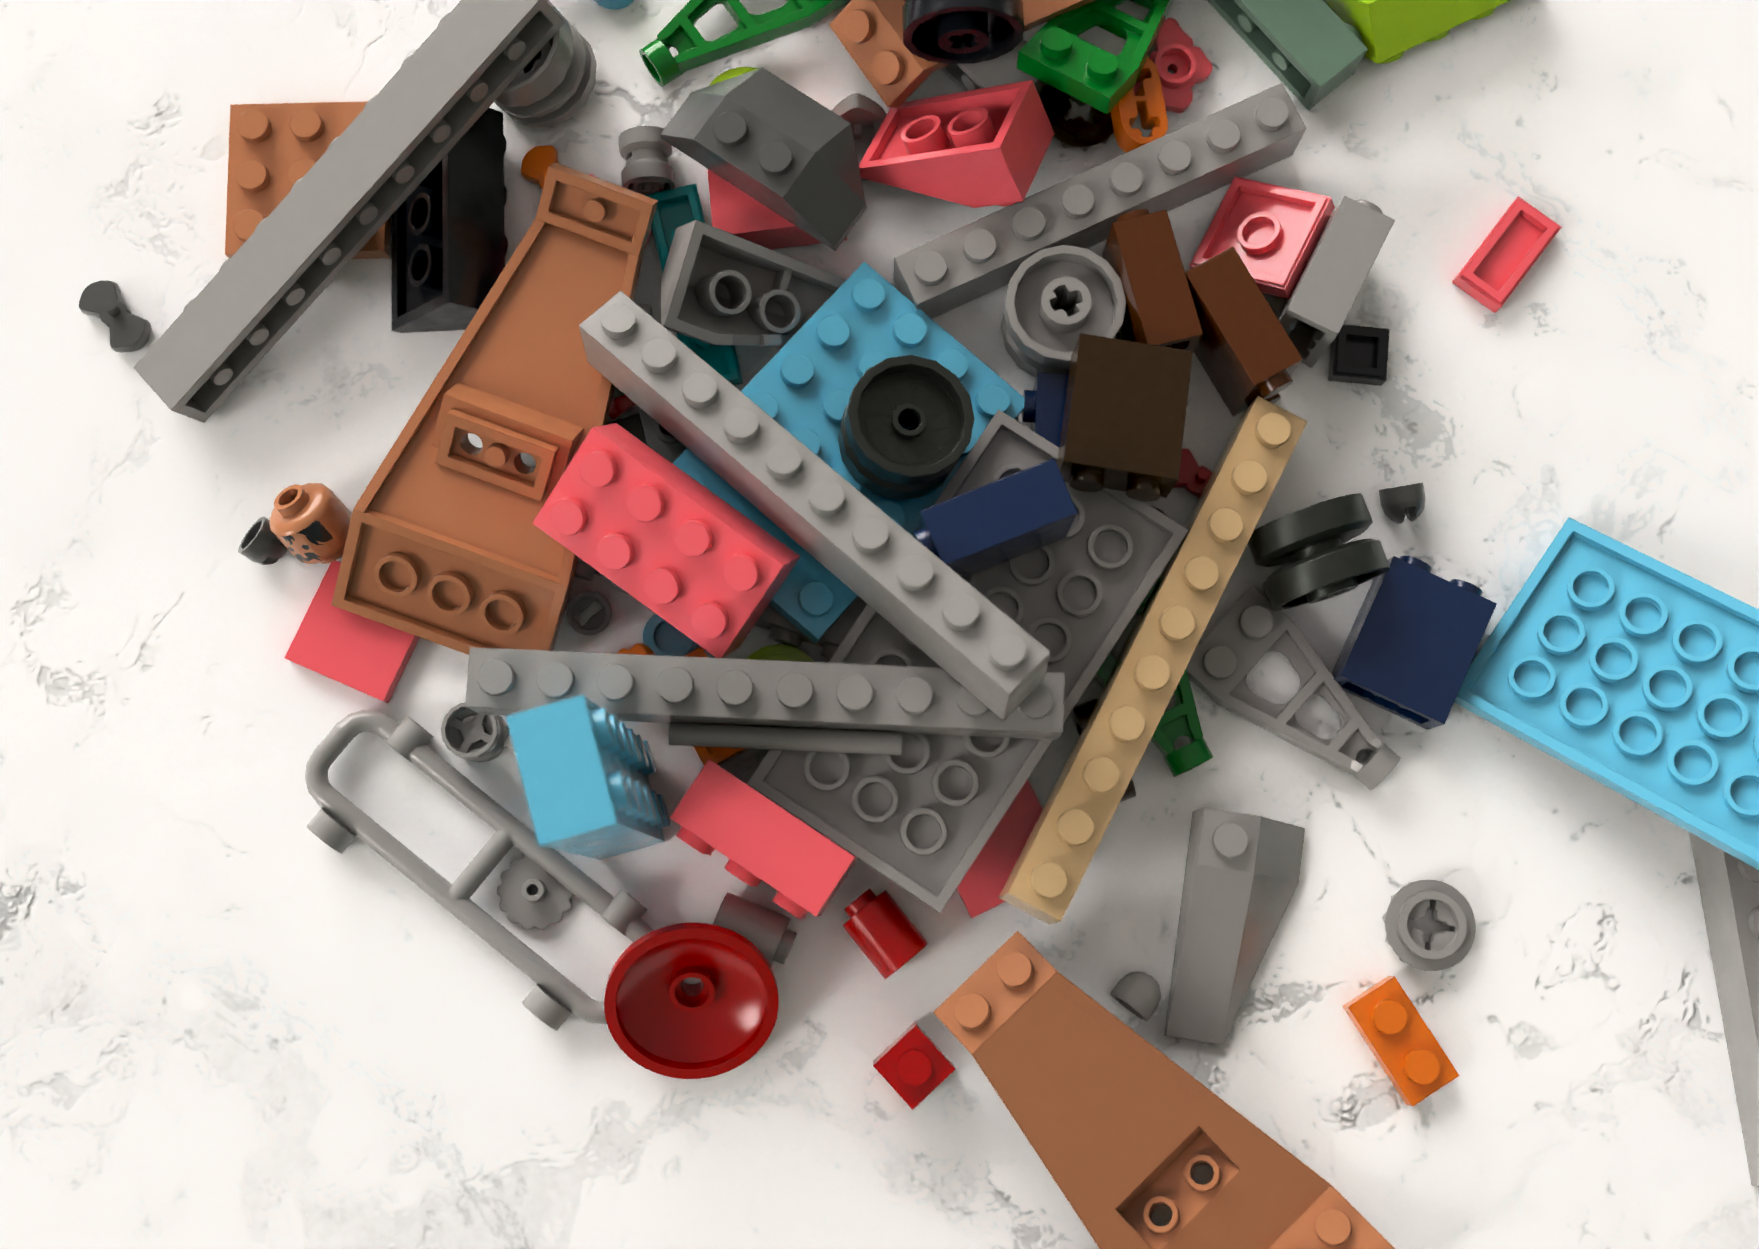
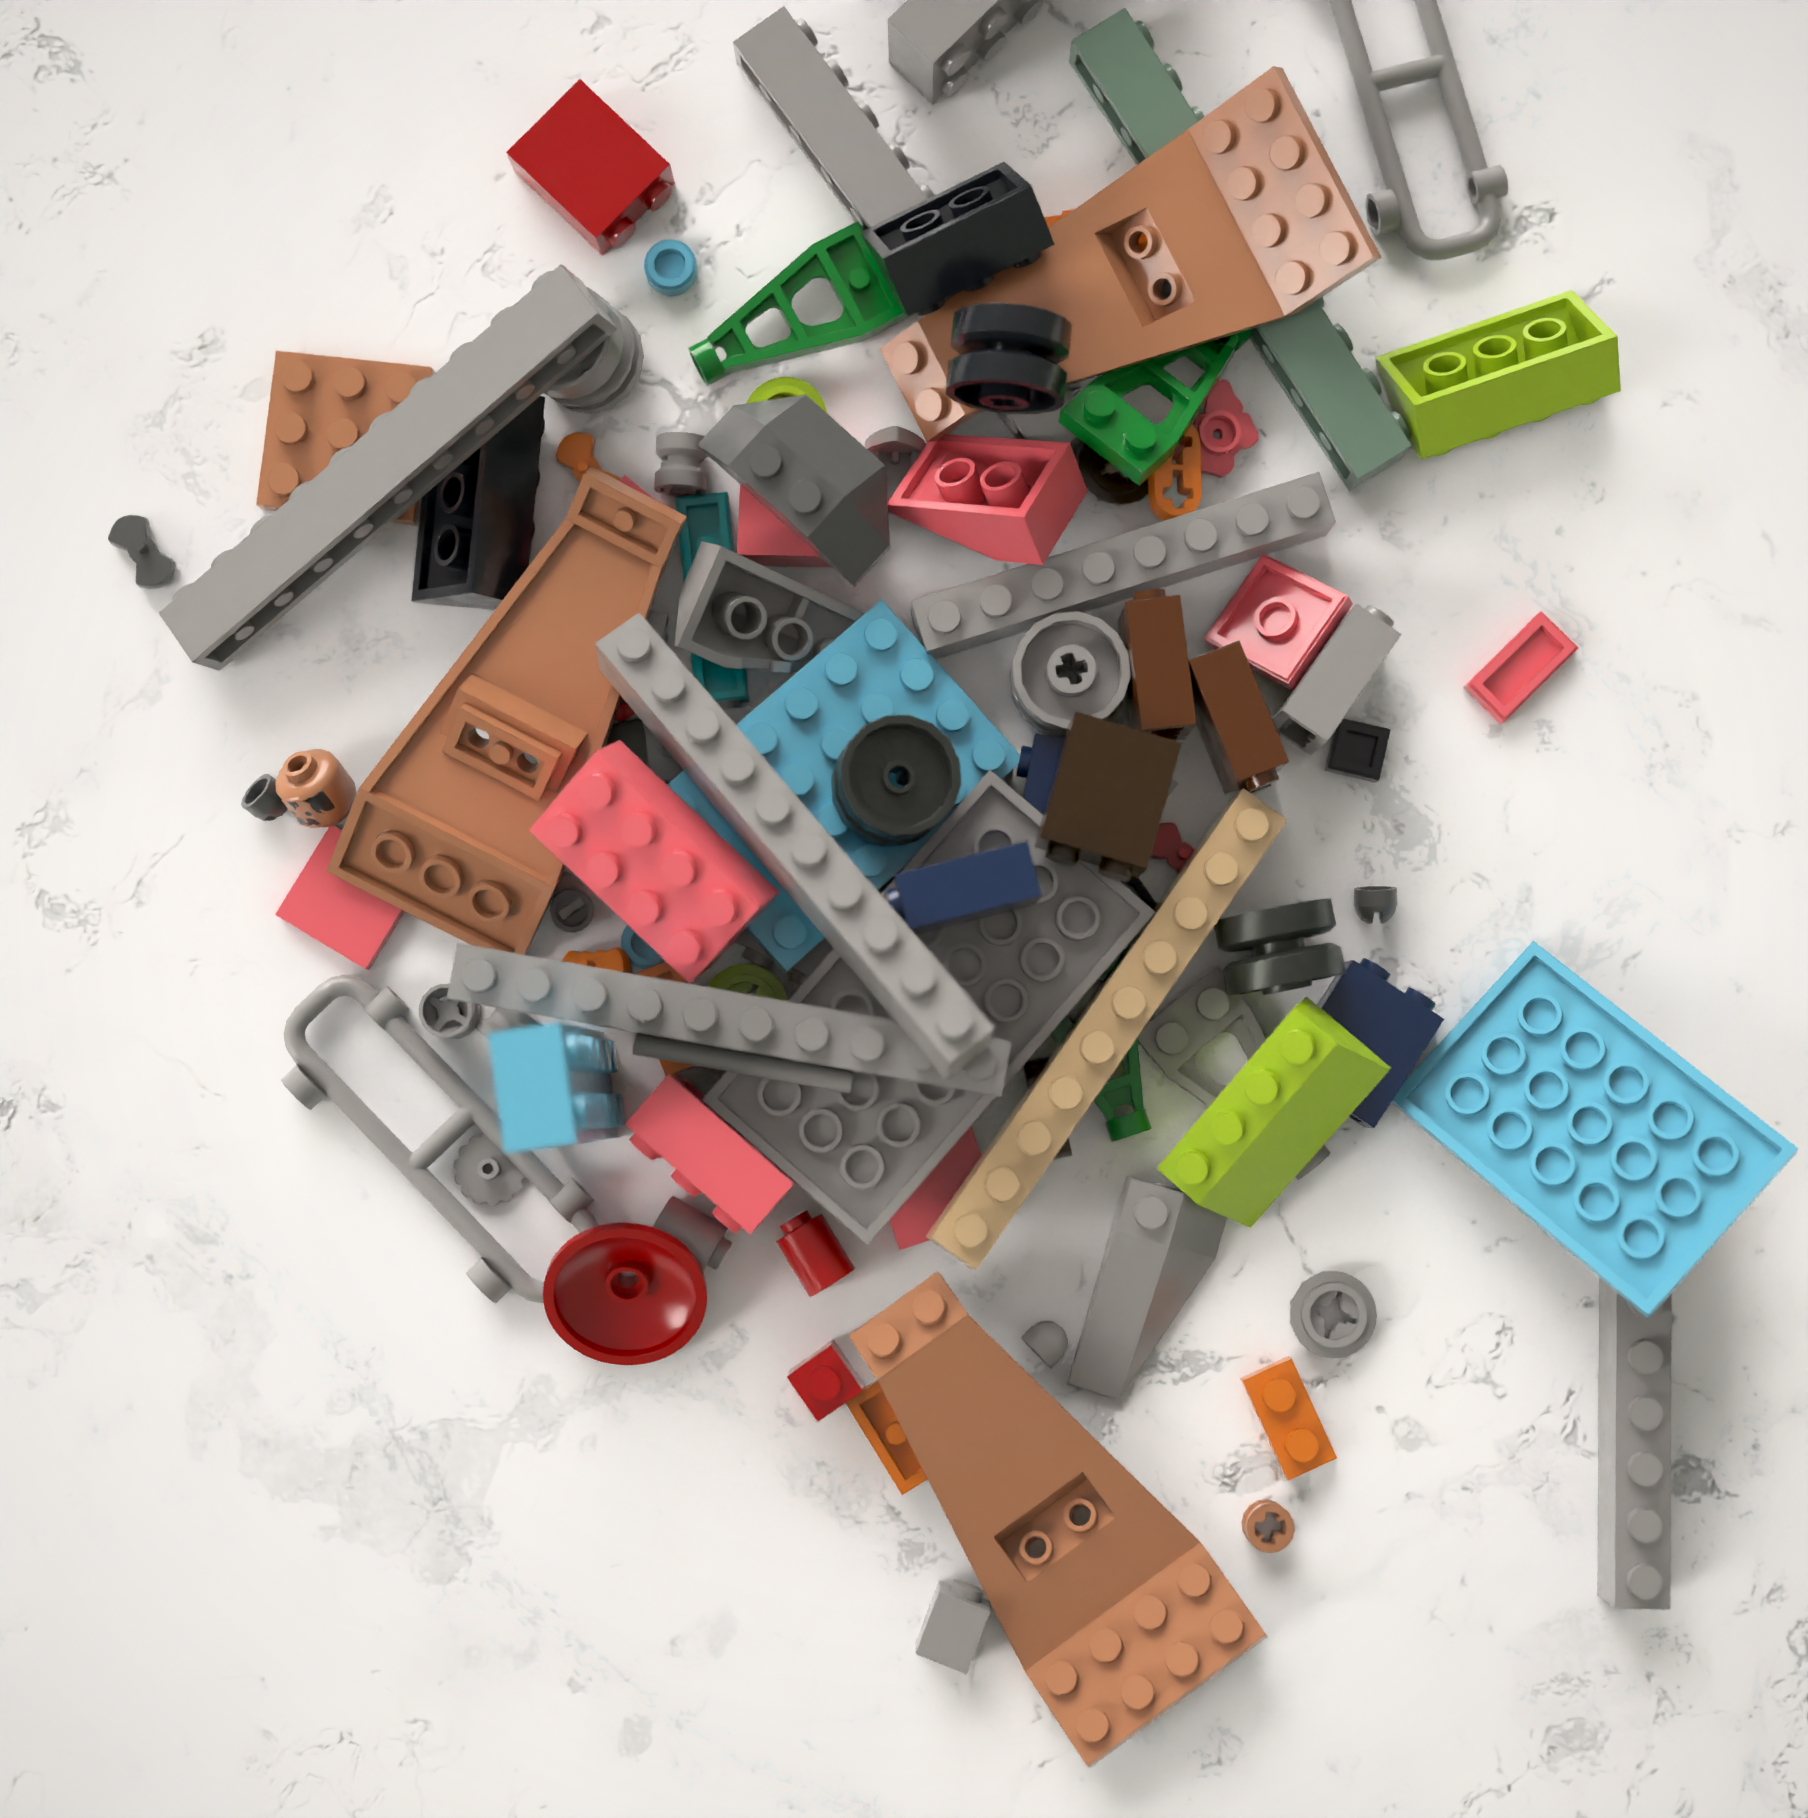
camera: 10 degrees right, 5 degrees up
(987, 1115) = (886, 1437): none -> orange plate
(1341, 723) = (1274, 1115): none -> lime slope
(1411, 1170) = (1278, 1538): none -> nougat bush

